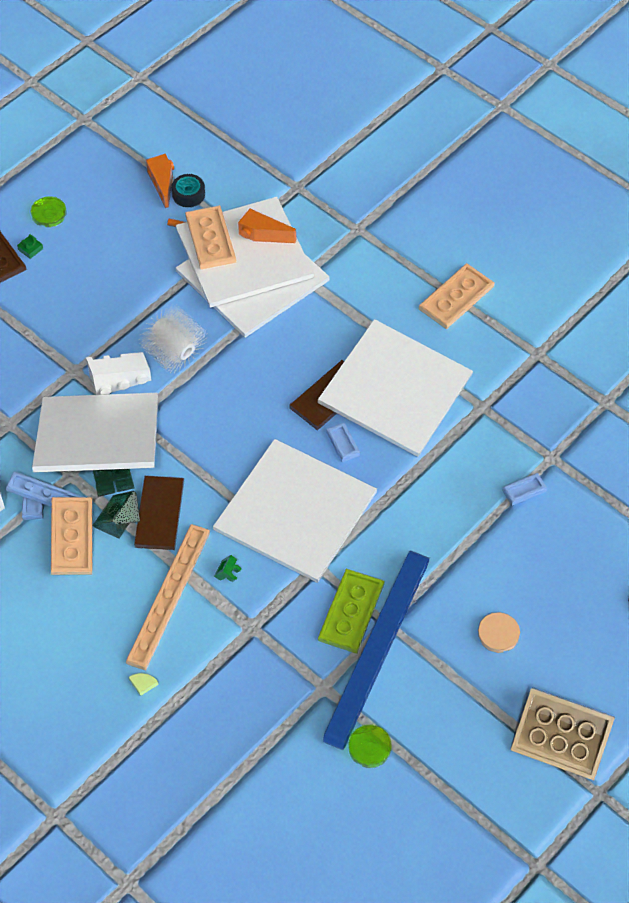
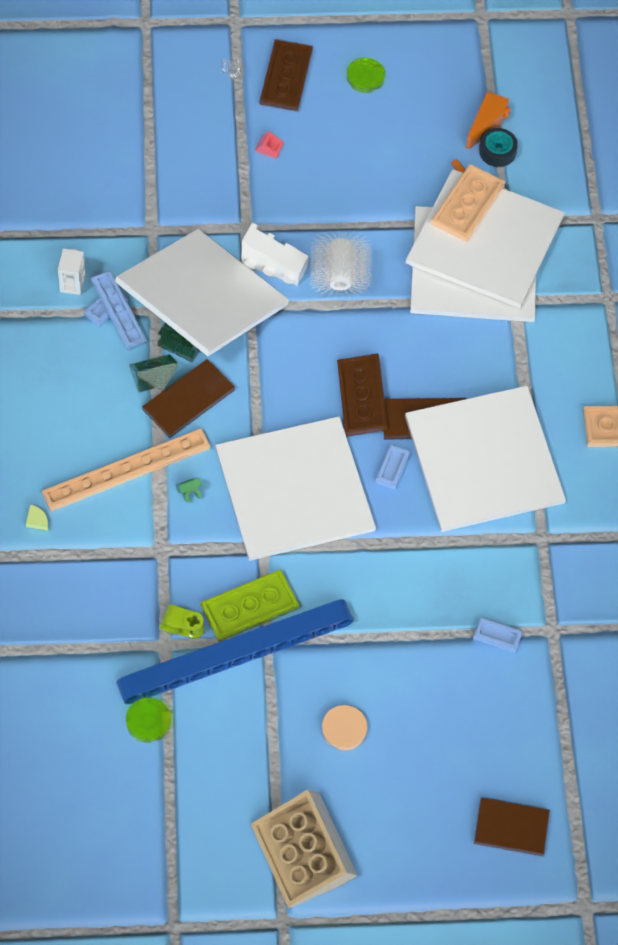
camera: 40 degrees right, 5 degrees up
(30, 246) = (319, 93): green tile -> none
(31, 305) = (269, 145): none -> coral slope
(71, 536) = (102, 358): light nougat tile -> none
(265, 229) = (517, 231): orange slope -> none
(274, 412) = (362, 395): none -> reddish brown tile
(320, 660) = (181, 622): none -> lime piece

